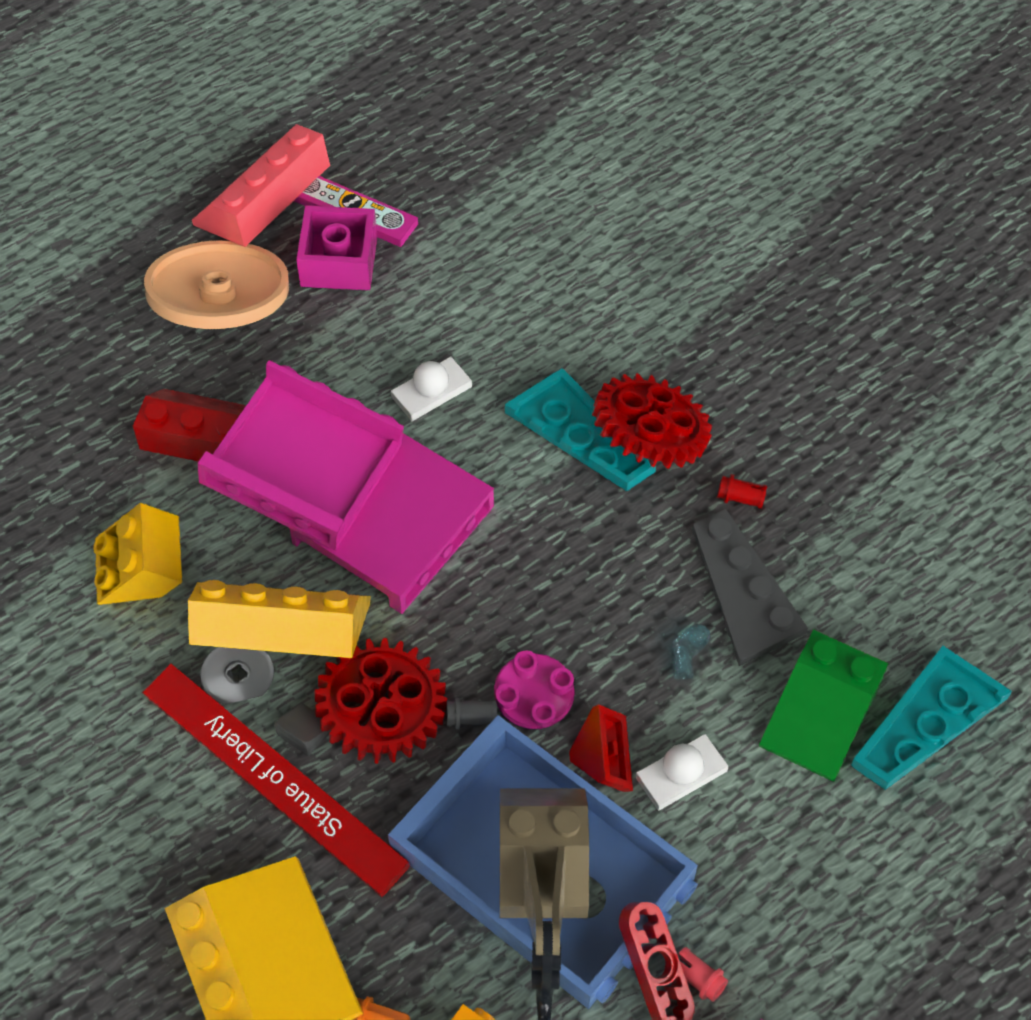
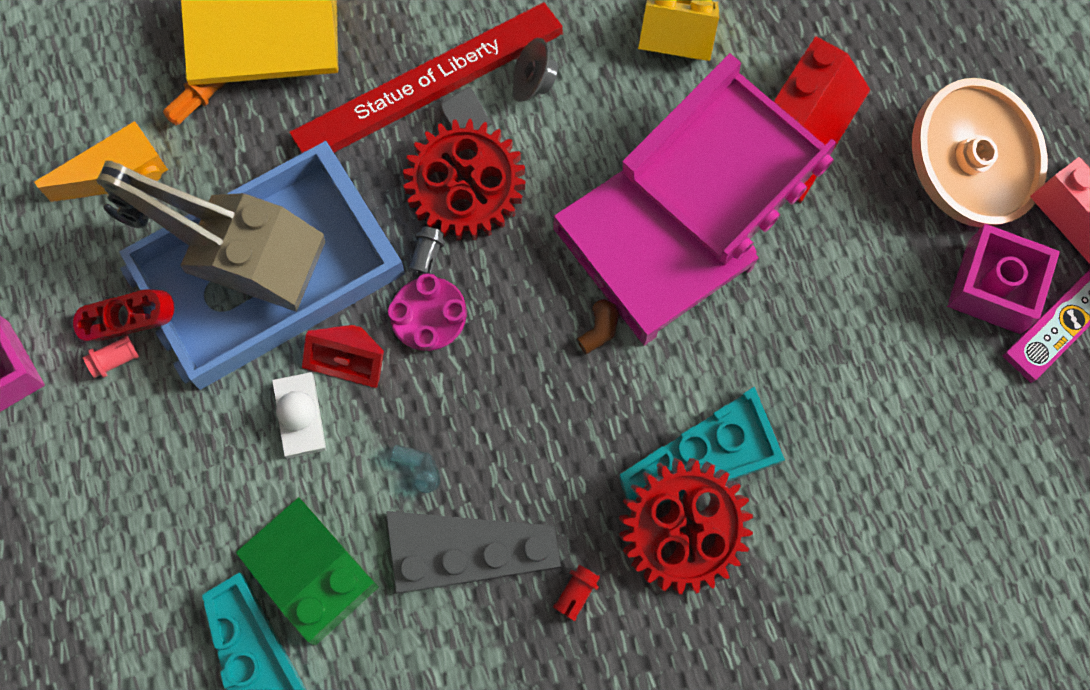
camera: 105 degrees right, 15 degrees up
(276, 618) = (567, 107): yellow slope -> none
(430, 387) = (801, 328): white tile -> none
(492, 538) = (604, 328): none -> reddish brown arm

